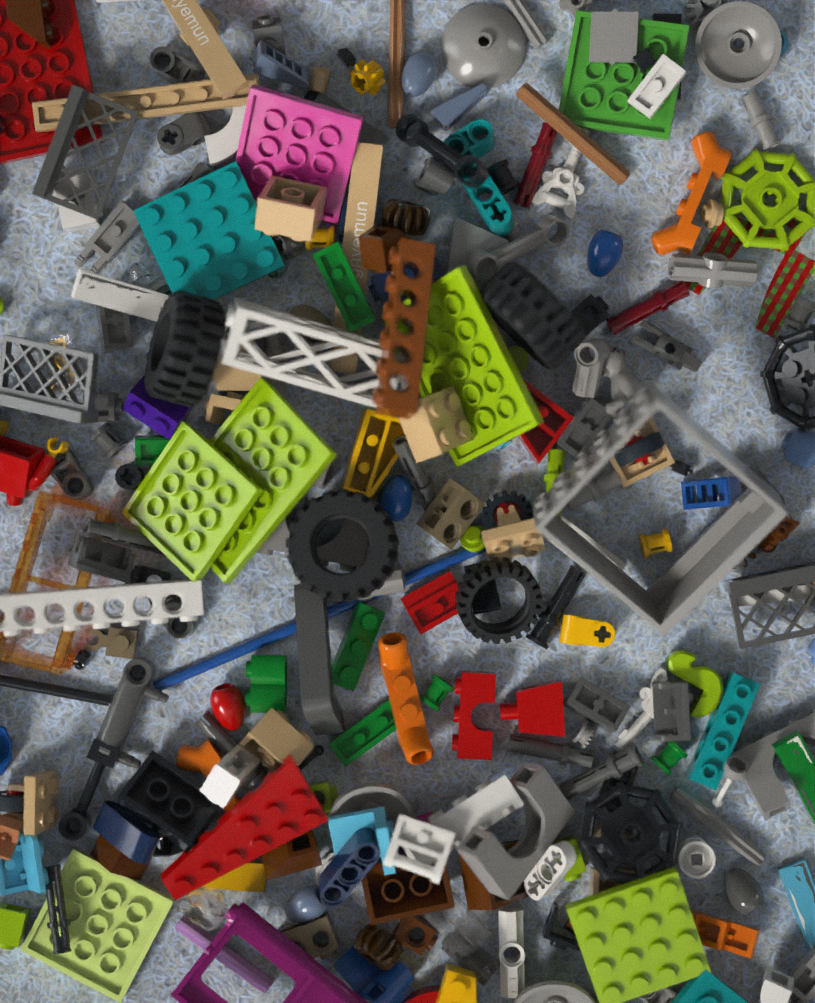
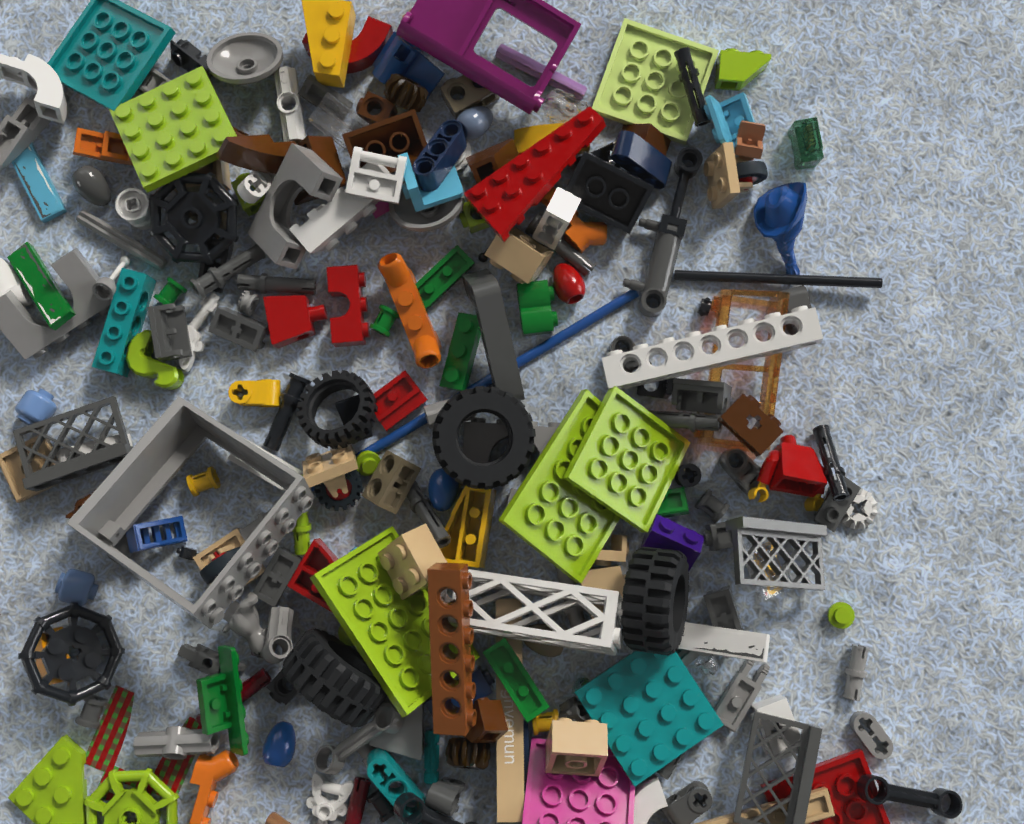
camera: 170 degrees right, 5 degrees down
(52, 502) = (755, 439): none -> reddish brown brick
(118, 642) = (675, 325): dark tan plate -> none
(445, 219) = (431, 757): none -> teal axle
(549, 895) = (254, 152): none -> reddish brown slope
(557, 940) = (249, 122): black bracket -> none
(655, 306) = (222, 701): none -> green bracket
(712, 214) = (183, 796): tan plate -> none

